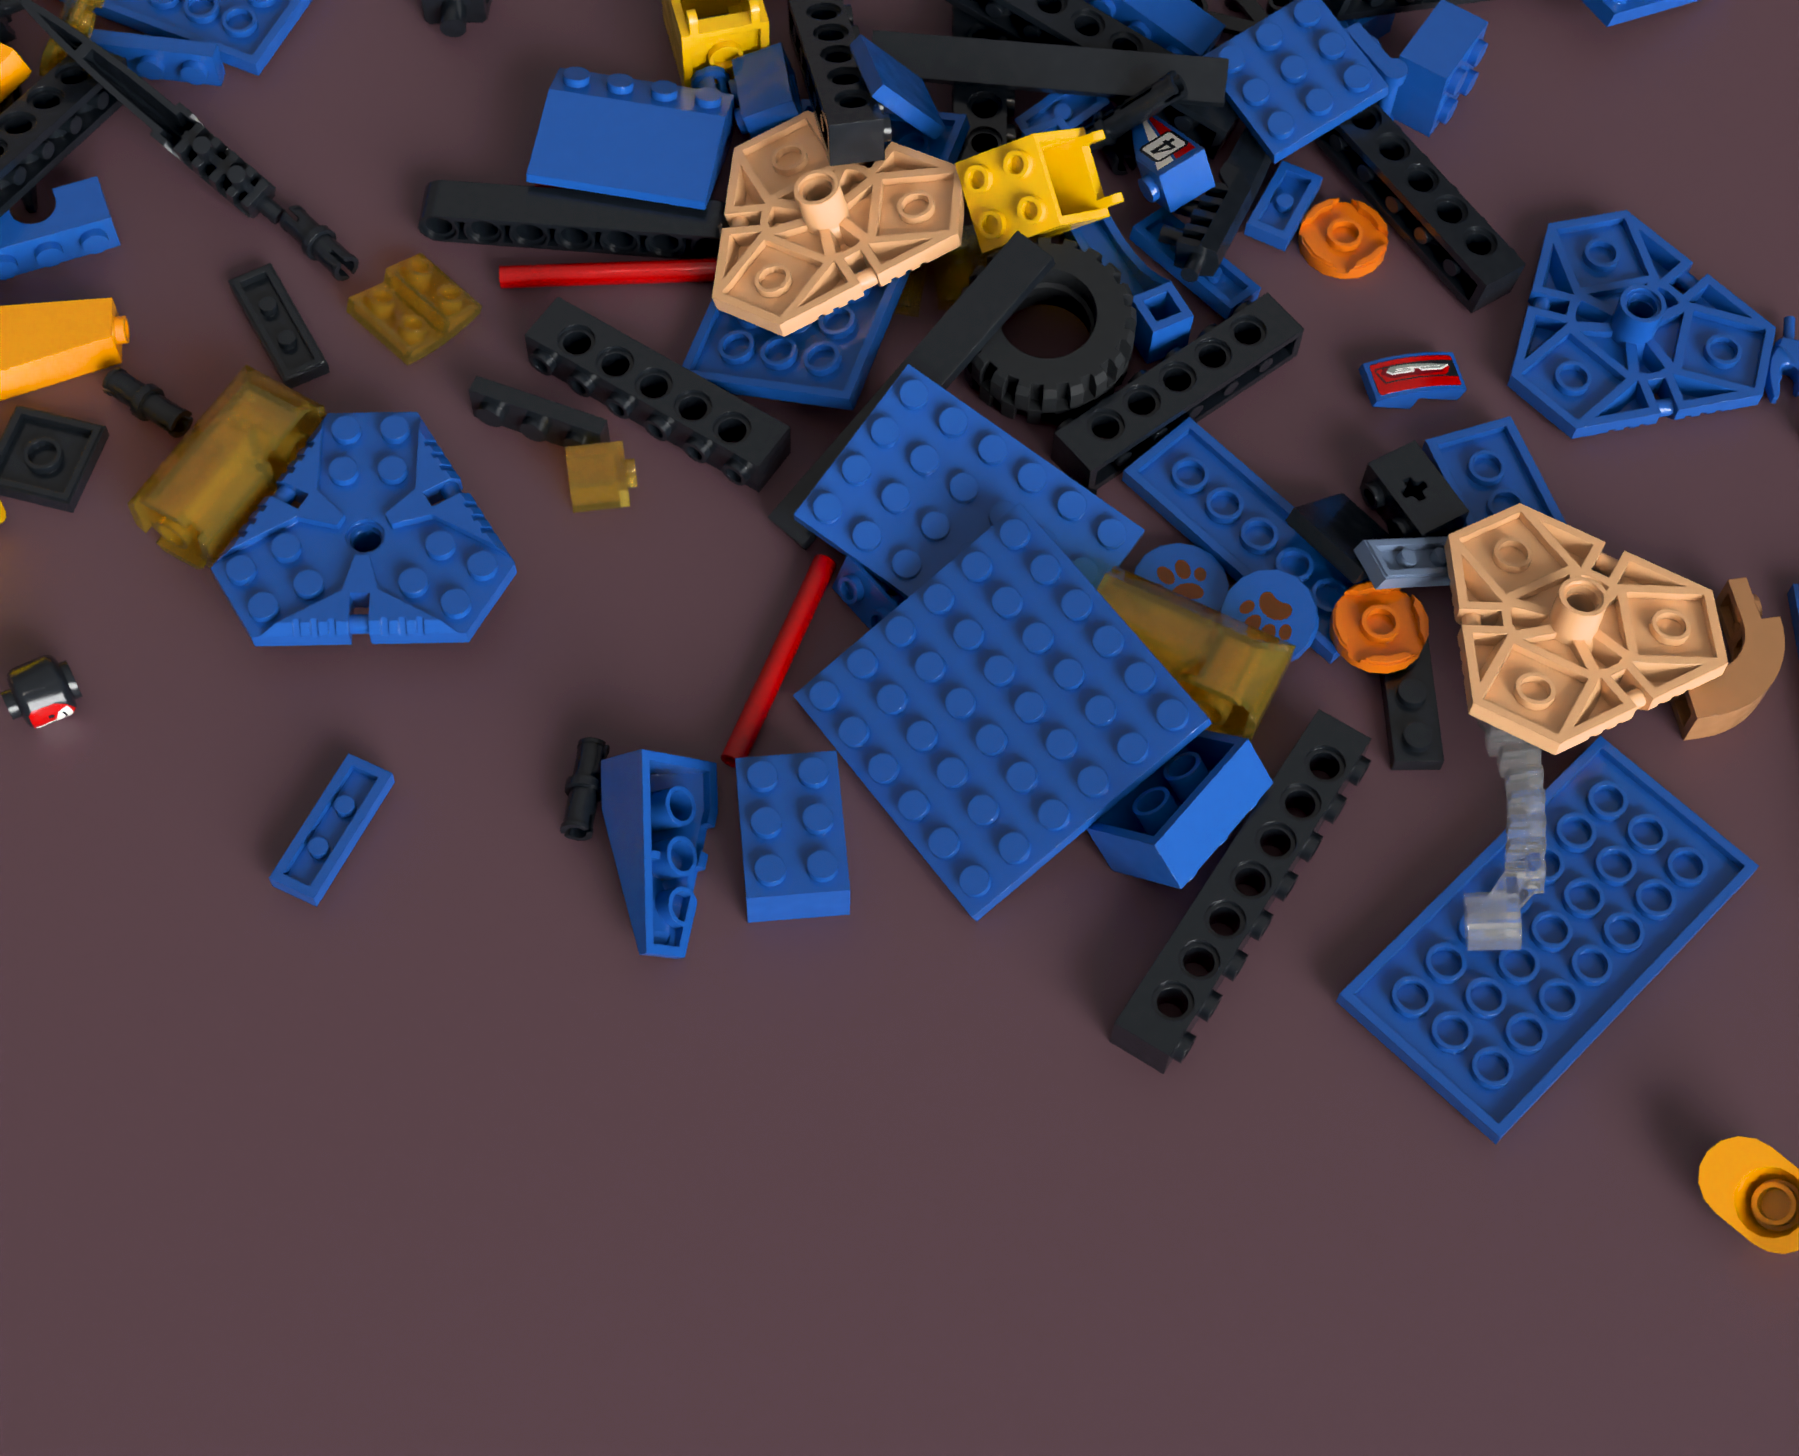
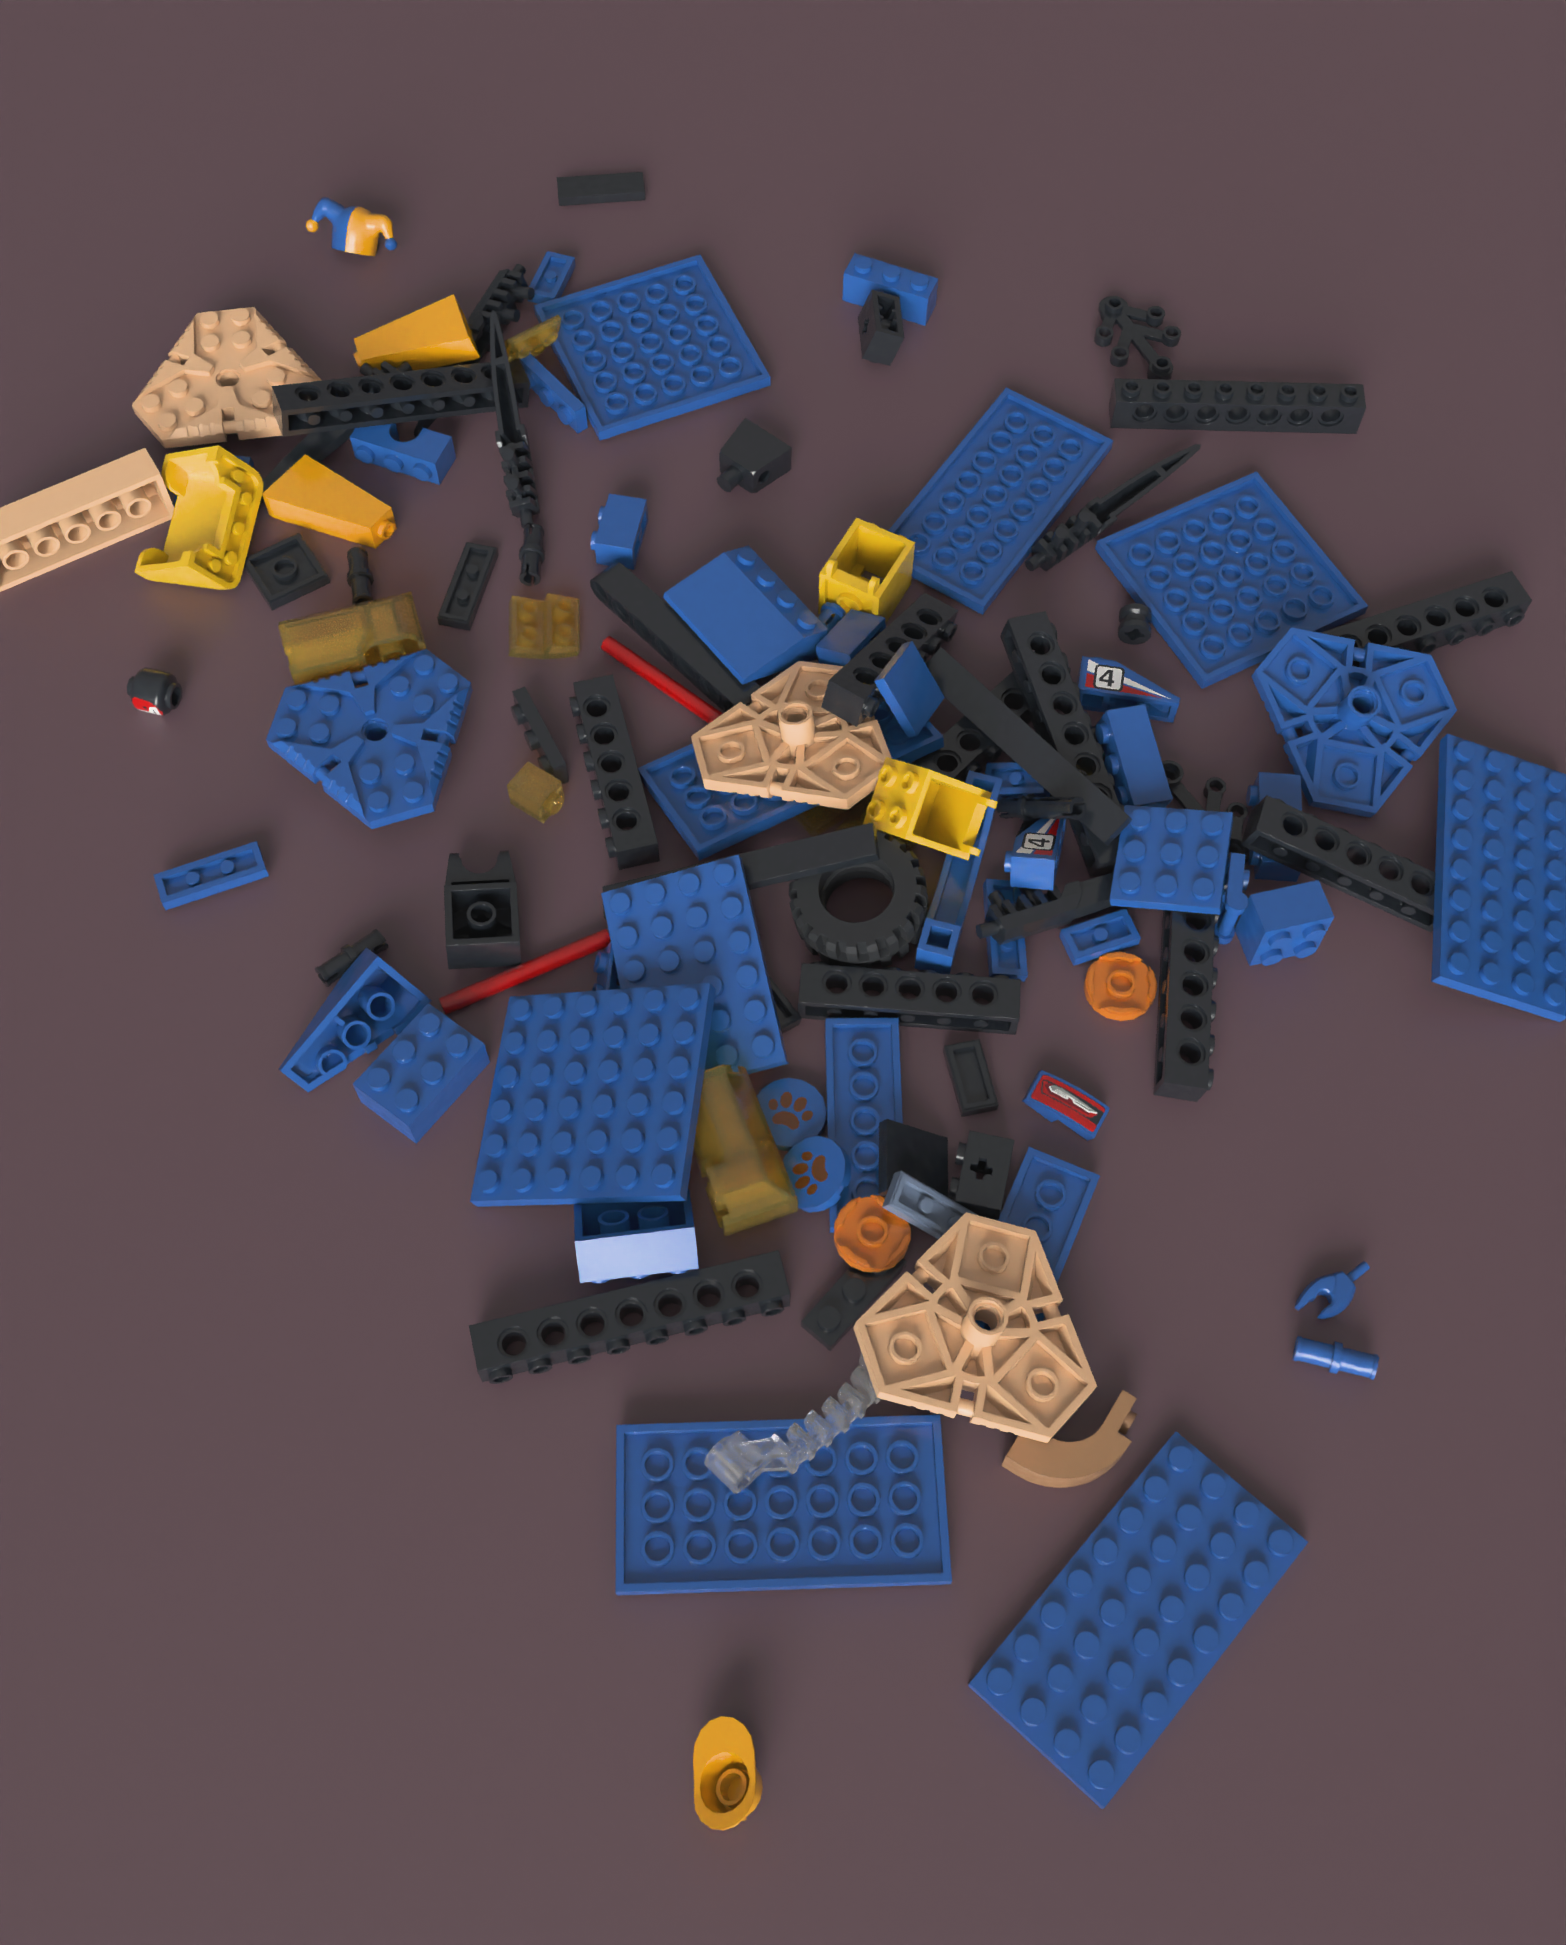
camera: 45 degrees right, 0 degrees up
(393, 149) = (620, 530): none -> blue brick
(680, 633) = (481, 915): none -> black brick
(1302, 424) = (970, 1078): none -> black tile
(1616, 331) = (1270, 1230): blue plate -> none

